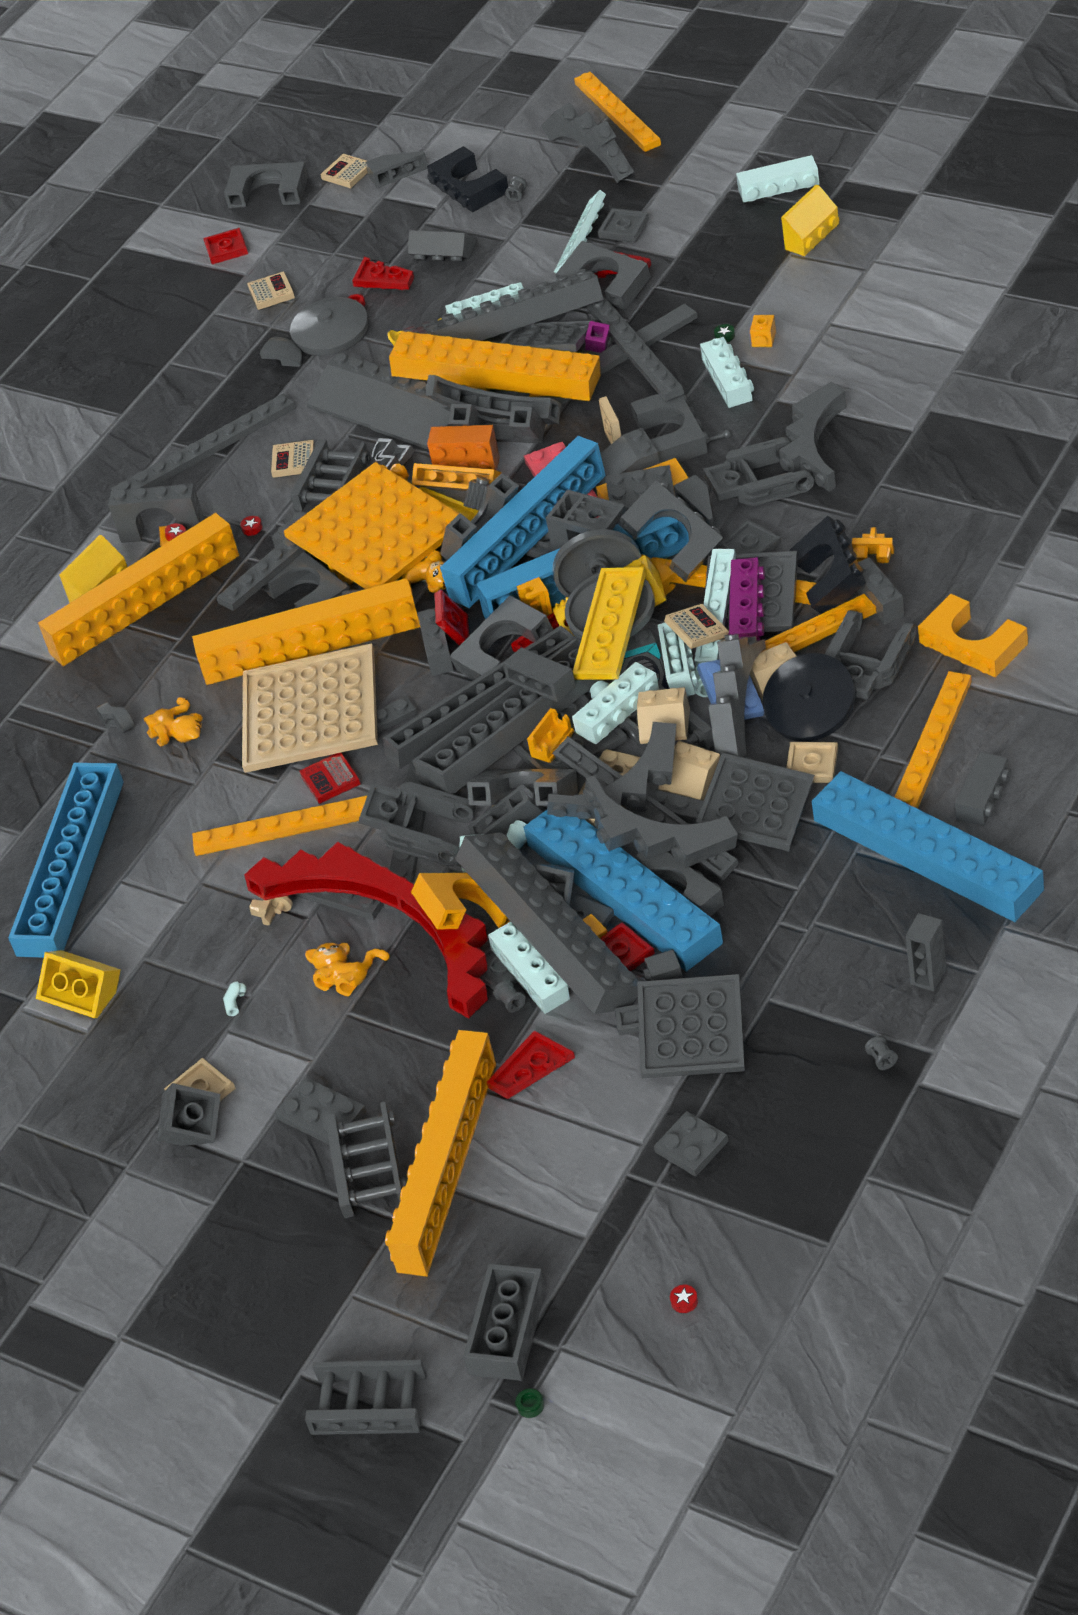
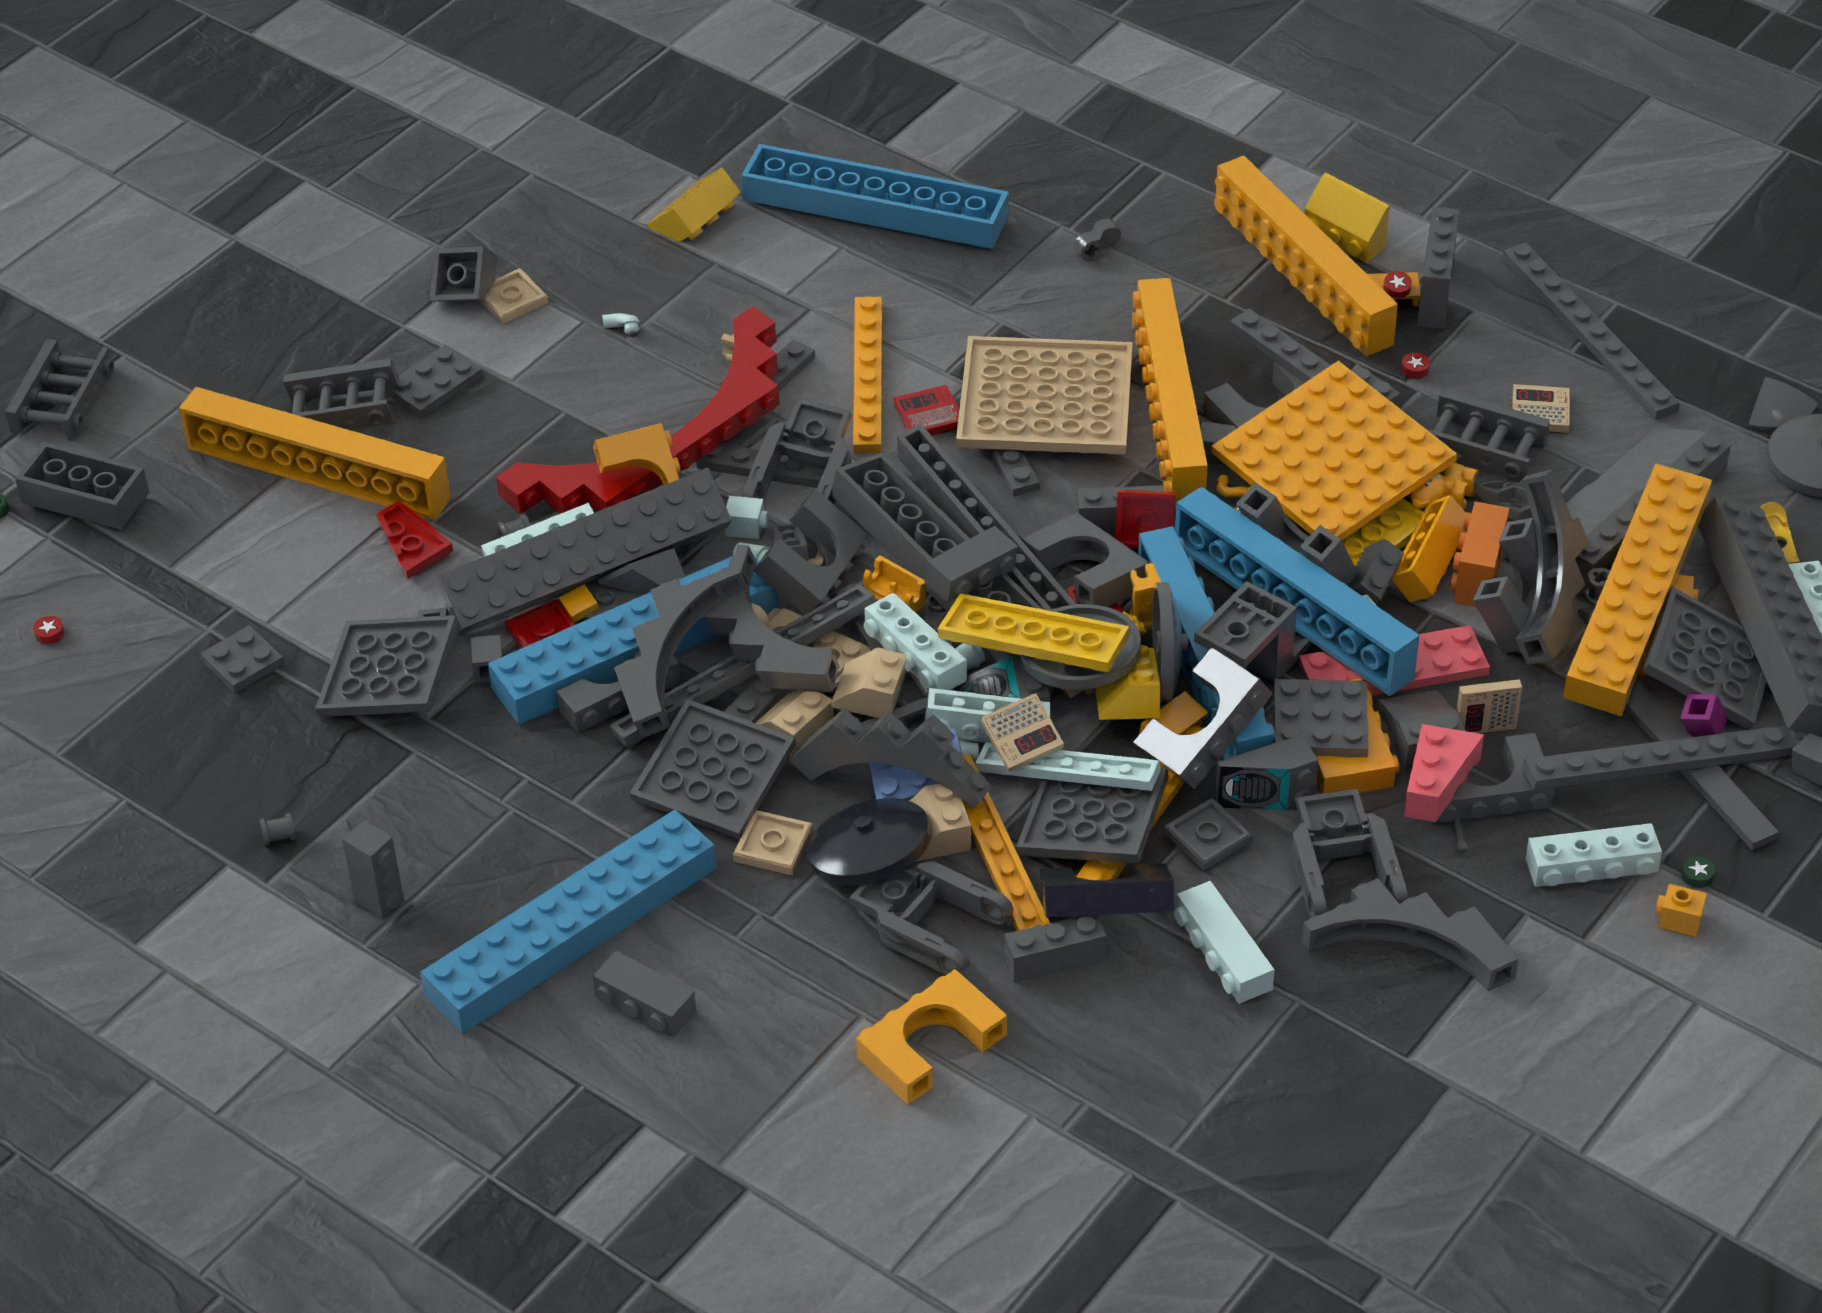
camera: 90 degrees right, 0 degrees up
(181, 728) = (1056, 279): light orange animal -> none
(333, 970) = (634, 393): light orange animal -> none
(686, 428) = (1439, 768): none -> coral wedge
(746, 598) = (1060, 792): magenta brick -> none
(857, 506) = (1224, 942): none -> light aqua brick
(873, 544) = (1153, 961): light orange hips -> none
(933, 738) = (759, 966): light orange plate -> none

